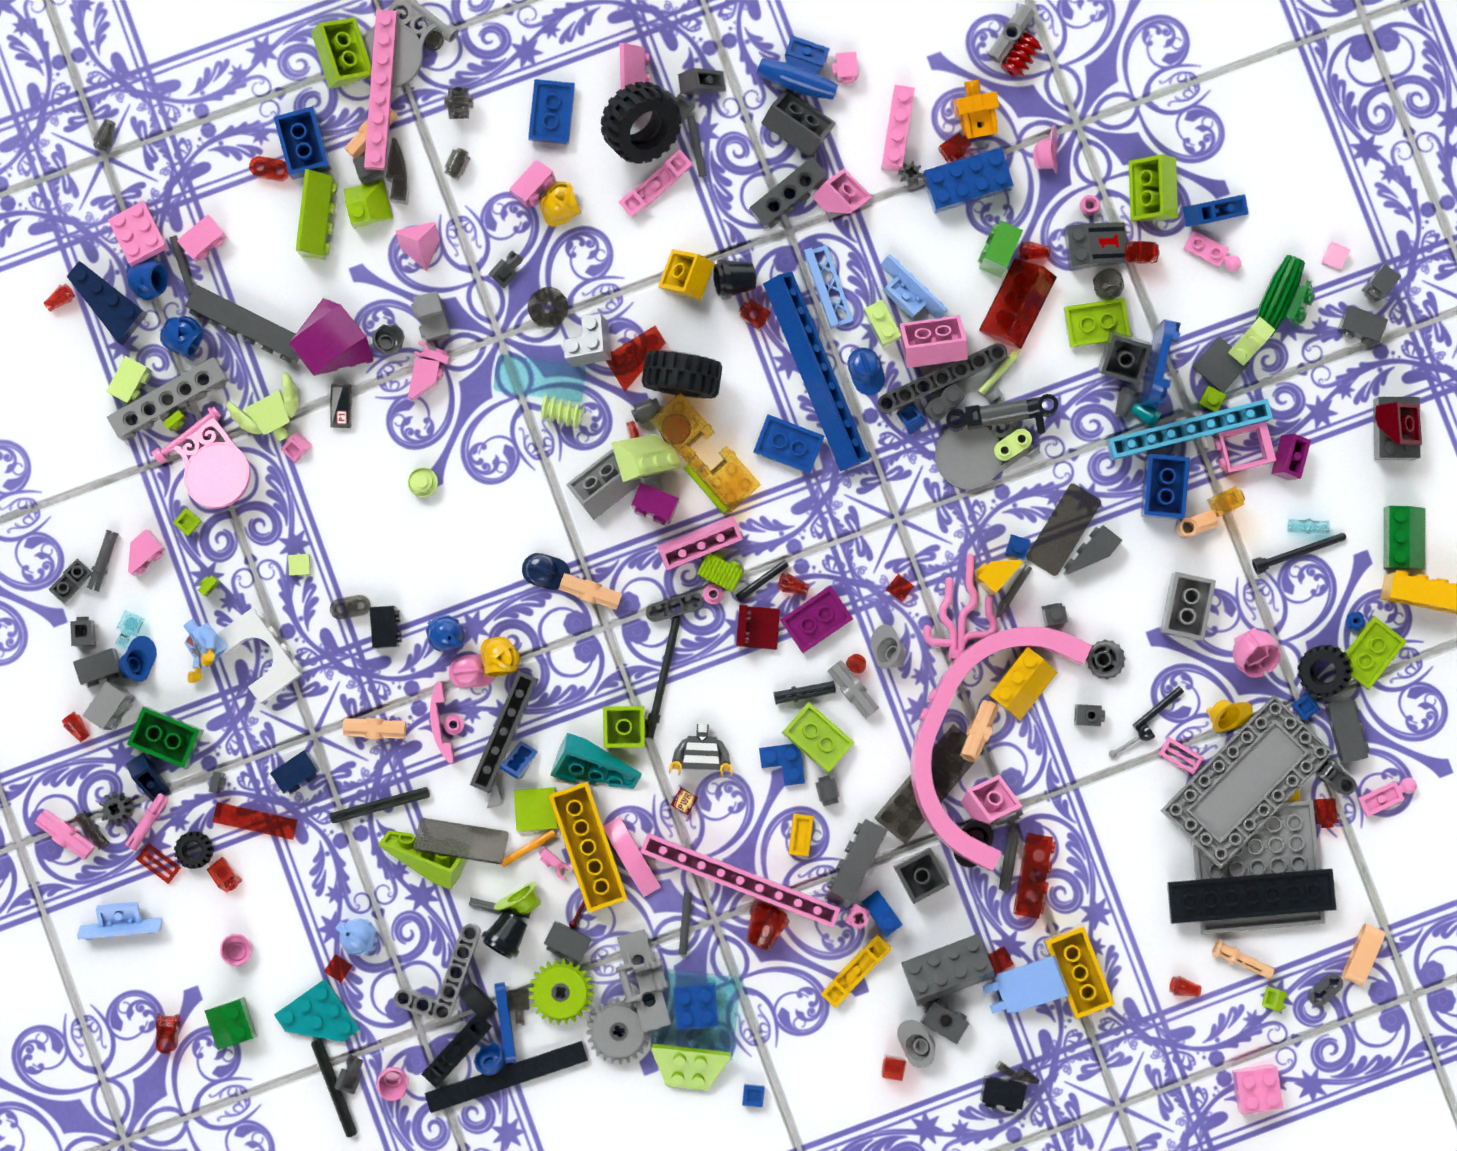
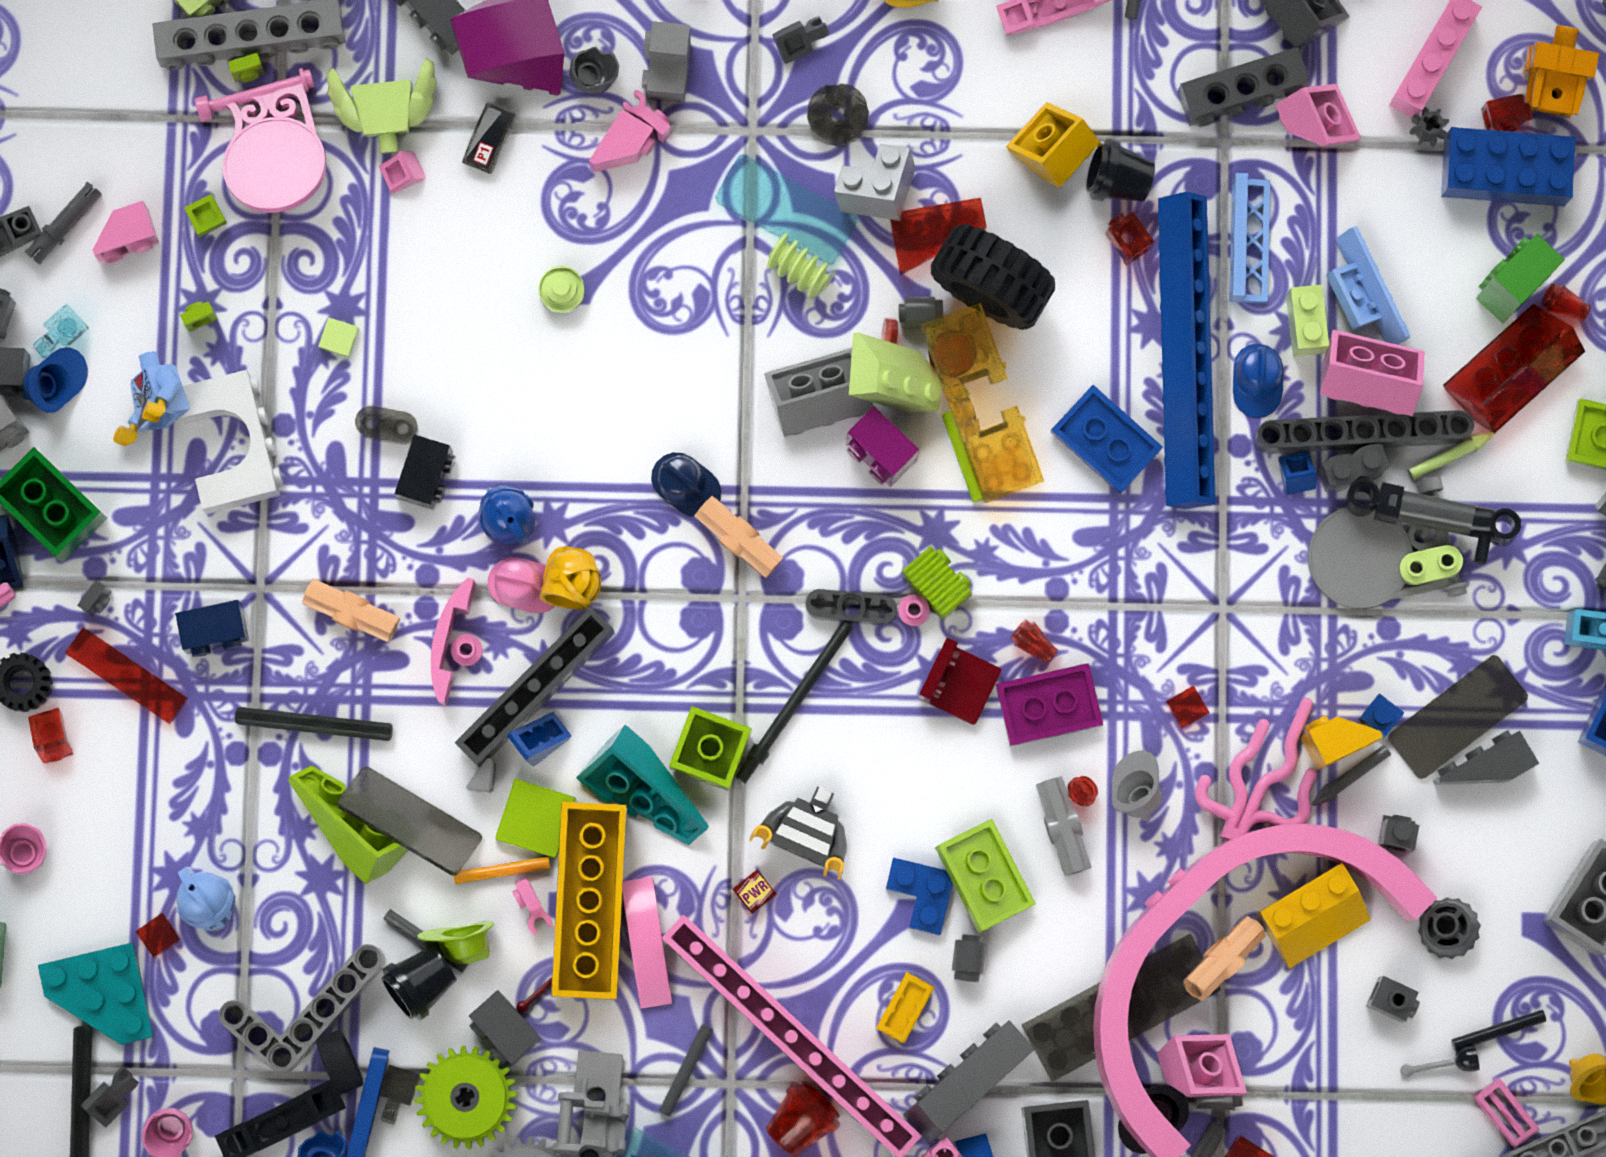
camera: 20 degrees right, 5 degrees down
(699, 542) = (923, 528): bright pink brick -> none
(762, 580) = (991, 619): black bar -> none
(781, 696) = (1028, 811): black pin -> none

